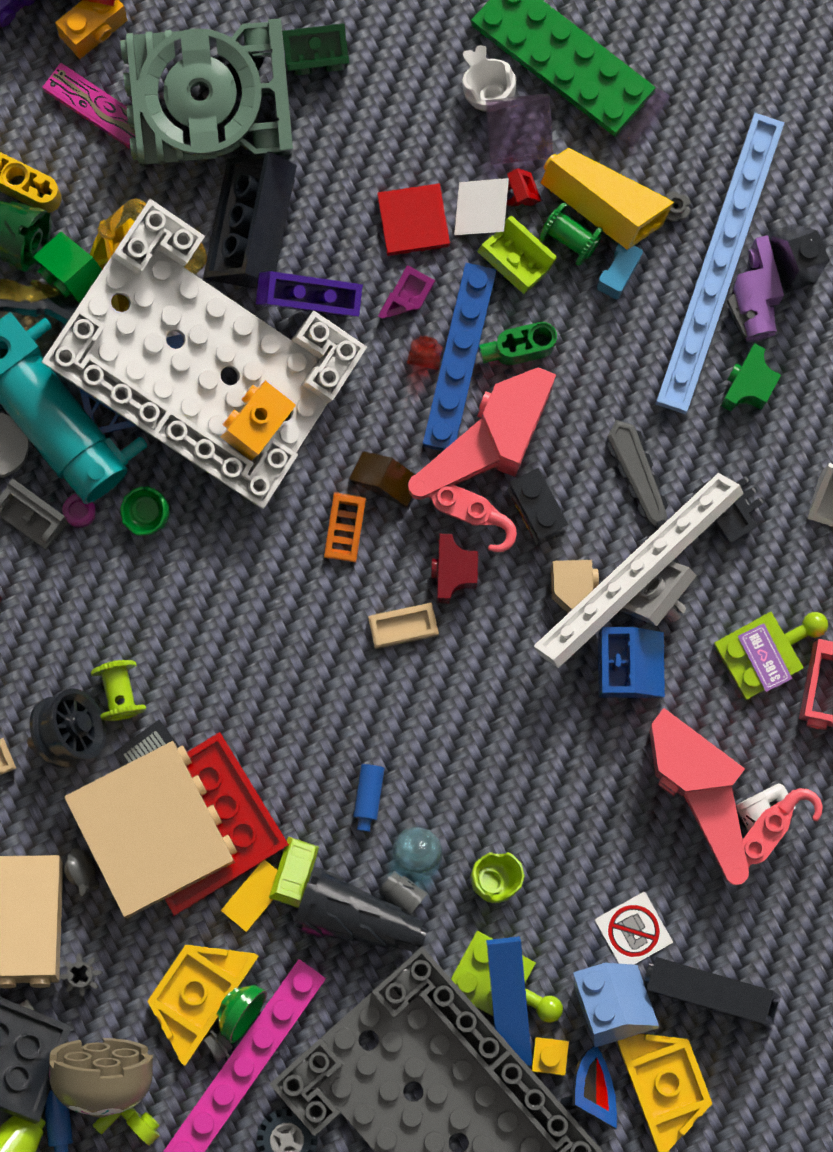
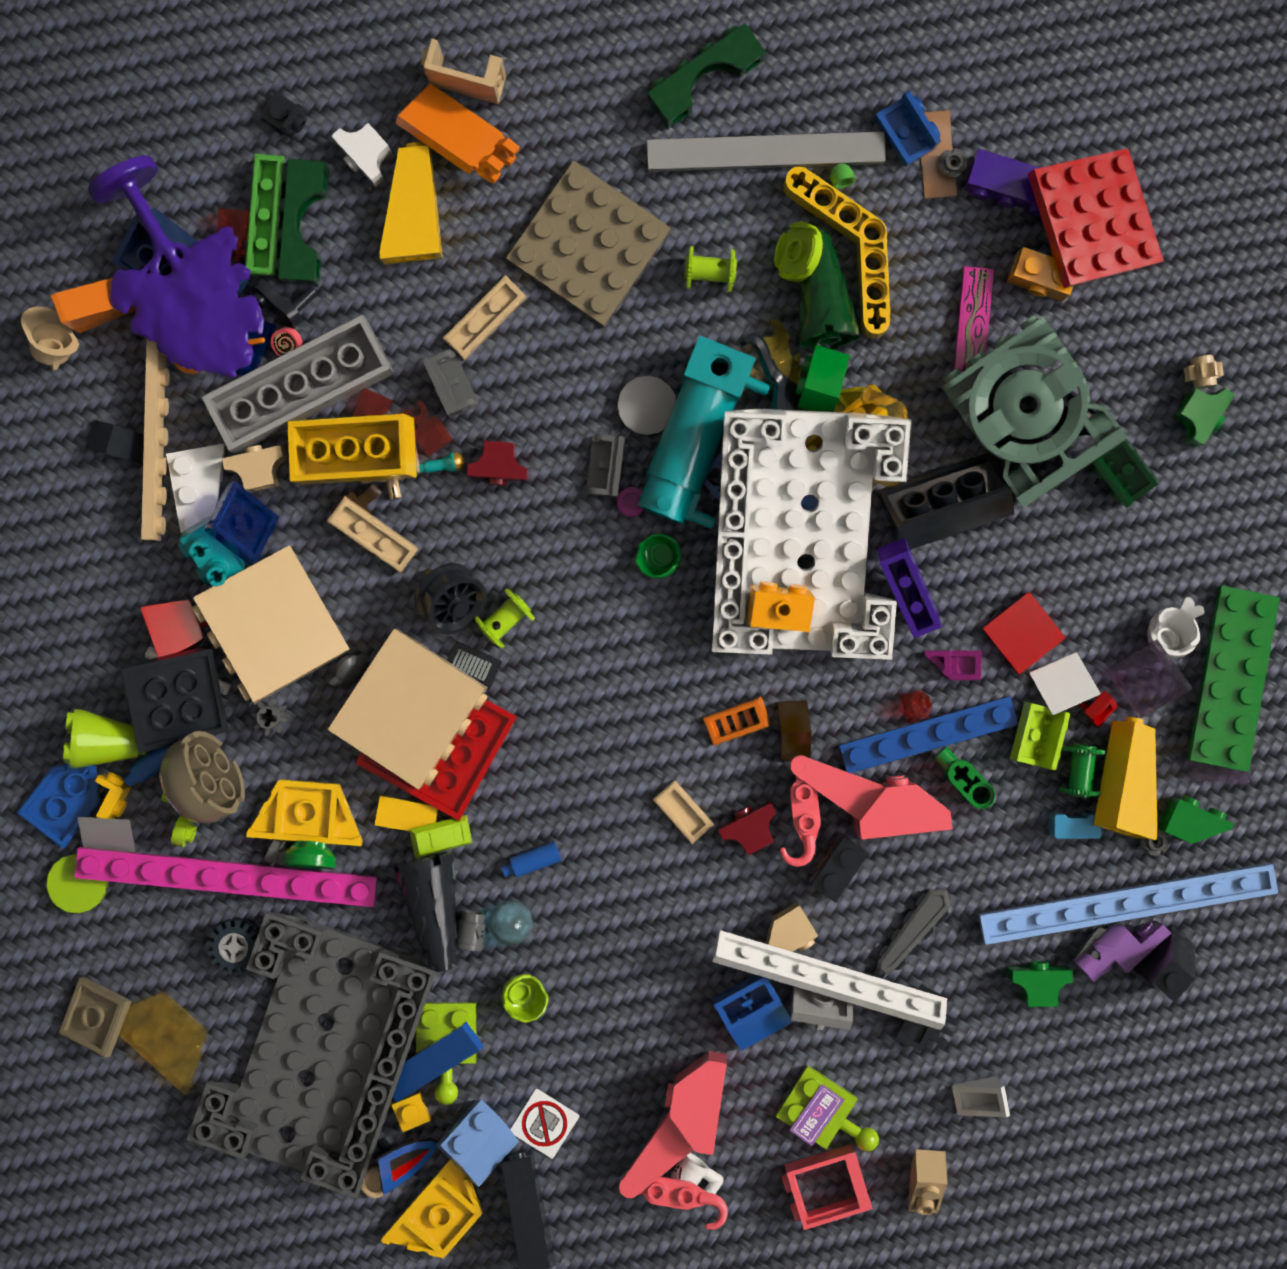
camera: 65 degrees right, 10 degrees up
(600, 1133) = (371, 1184): none -> tan tile
(675, 164) = (1190, 823): none -> green slope

